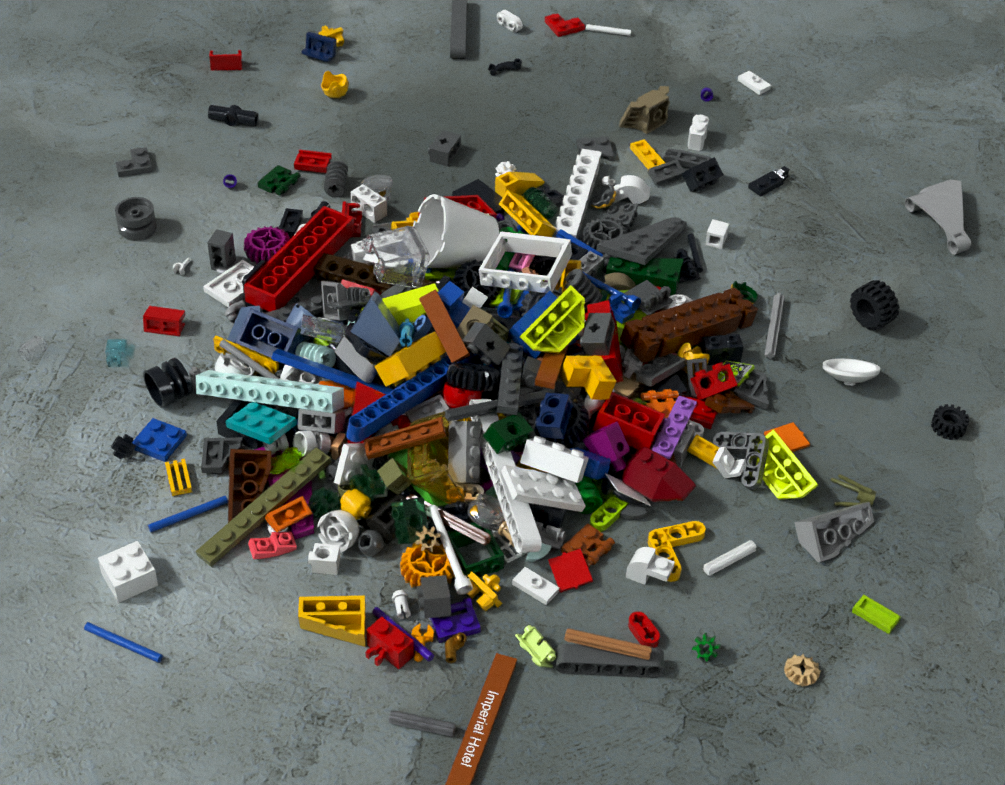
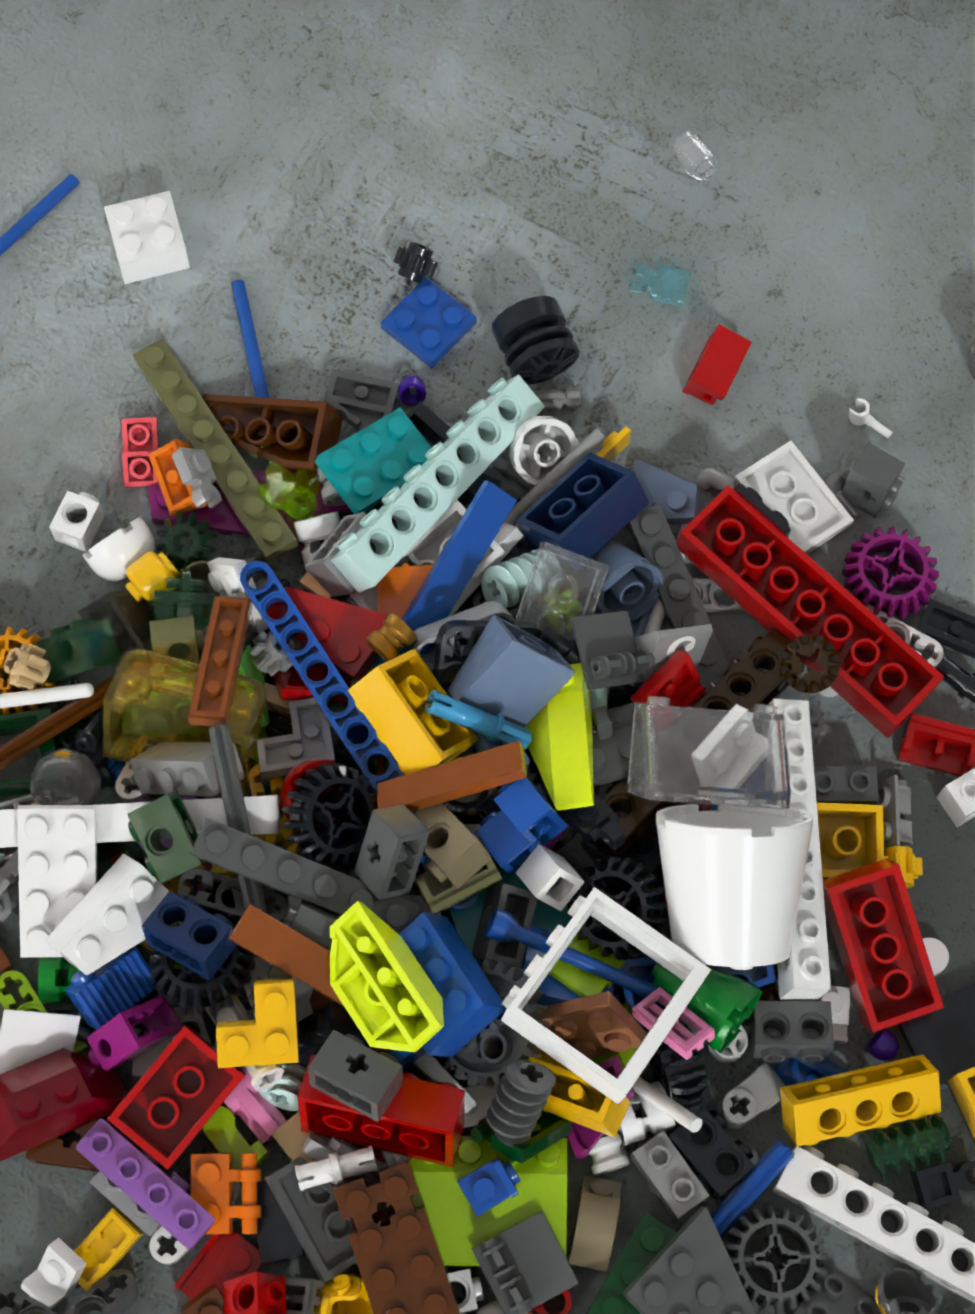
camera: 105 degrees right, 25 degrees up
(176, 466) = (333, 333): yellow tile -> none
(203, 433) = (404, 390): none -> dark purple hinge
(284, 498) = (197, 472): none -> light grey plate
(336, 250) = (814, 680): none -> dark brown gear
(370, 542) = (82, 591): dark grey piece -> none
(371, 377) = (391, 637): none -> pearl gold wheel
(631, 301) = (506, 1216): blue piece -> none
(637, 356) = (336, 1168): none -> white pin

